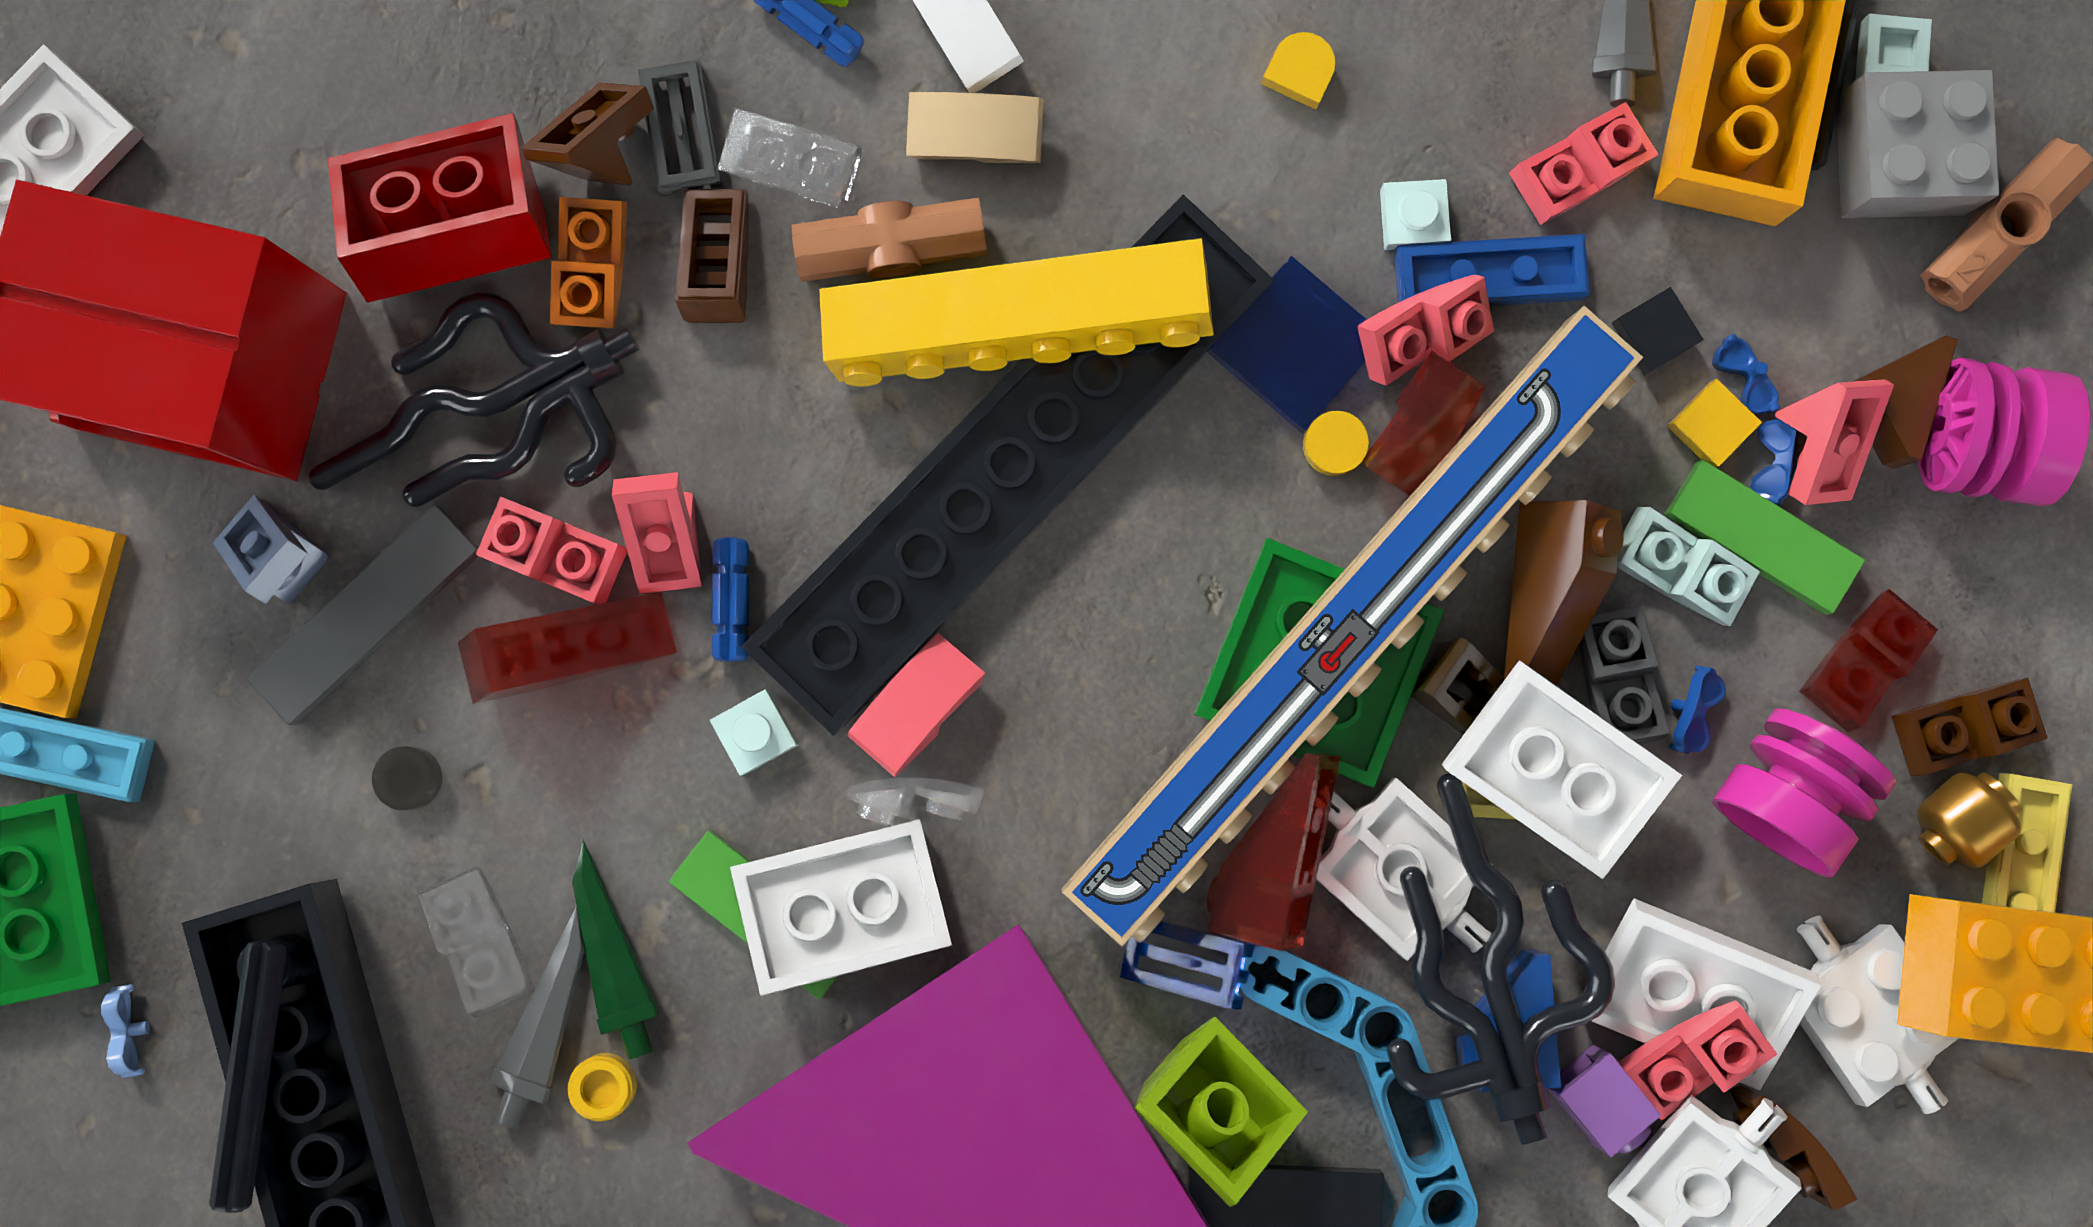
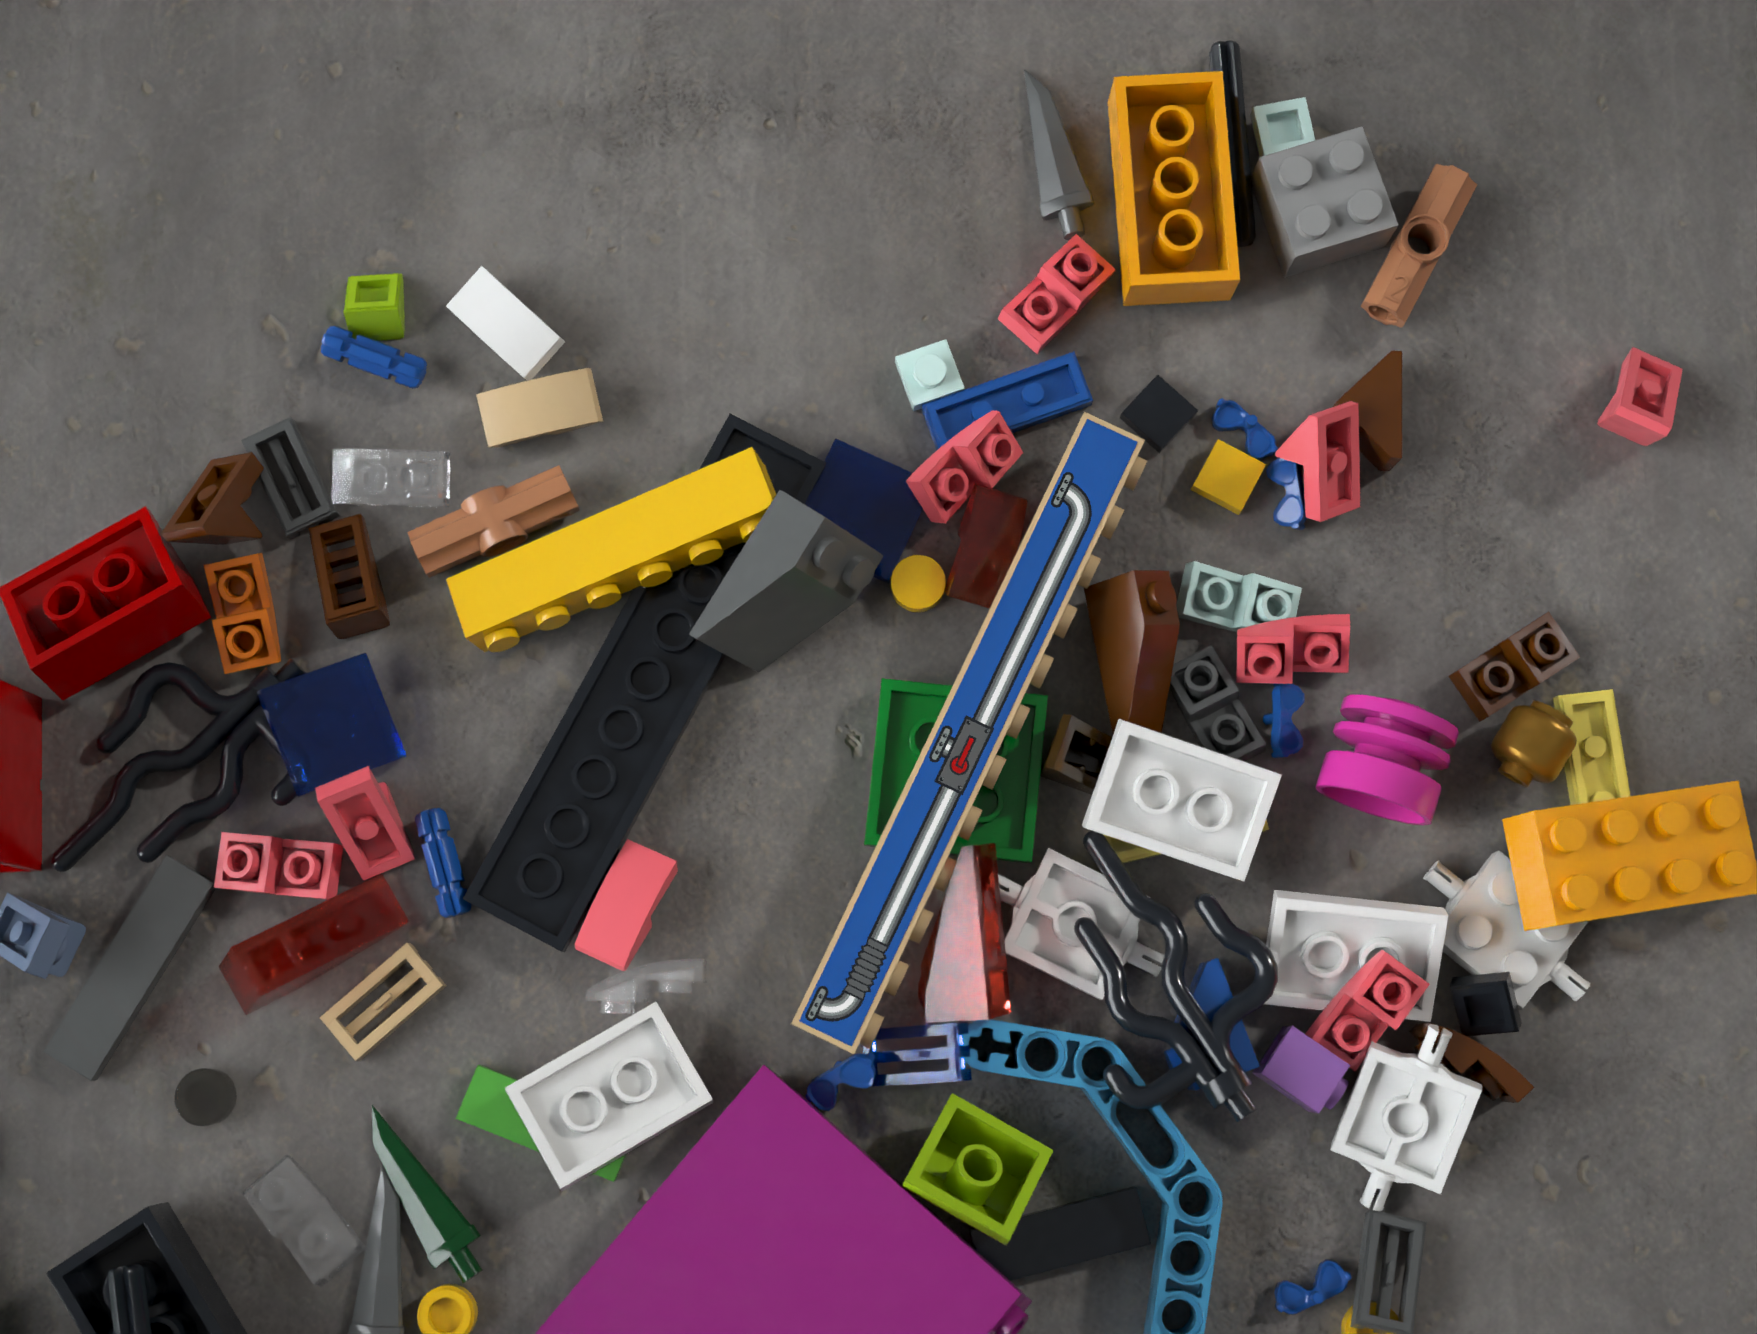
camera: 15 degrees left, 5 degrees down
(574, 755) = (420, 970): none -> tan tile
(650, 412) = (331, 723): none -> clear blue tile
(754, 732) = (494, 970): light aqua plate -> none
(1111, 958) = (855, 1071): none -> blue piece
(1194, 402) = (785, 584): none -> dark grey slope
(1301, 68) = (799, 282): yellow tile -> none
(1732, 632) = (1296, 644): none -> coral slope
(1765, 537) = (1298, 558): bright green tile -> none
(1827, 1089) = (1485, 1004): none -> black tile
(1867, 659) = (1414, 635): clear red slope -> none
(2007, 433) = (1462, 416): dark pink wheel -> none

